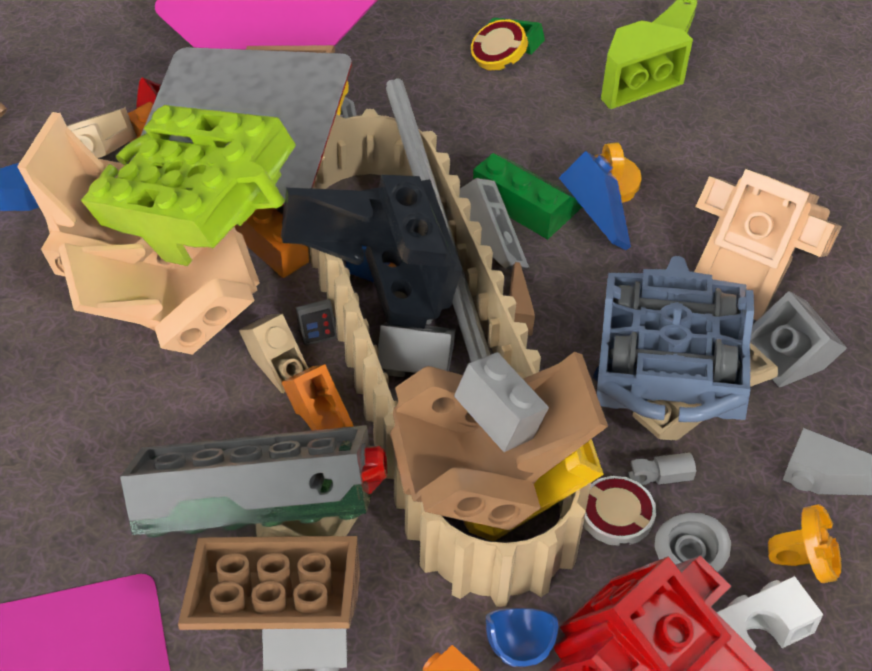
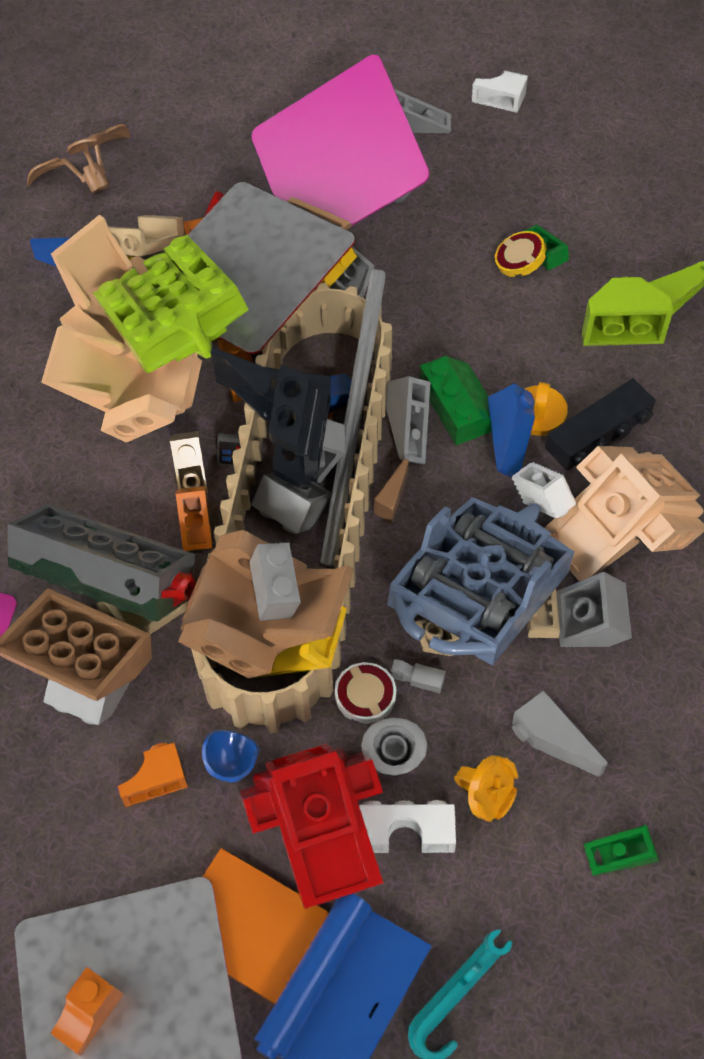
camera: 30 degrees right, 10 degrees up
(673, 237) = (545, 489): none -> white brick
(679, 170) = (600, 424): none -> black brick

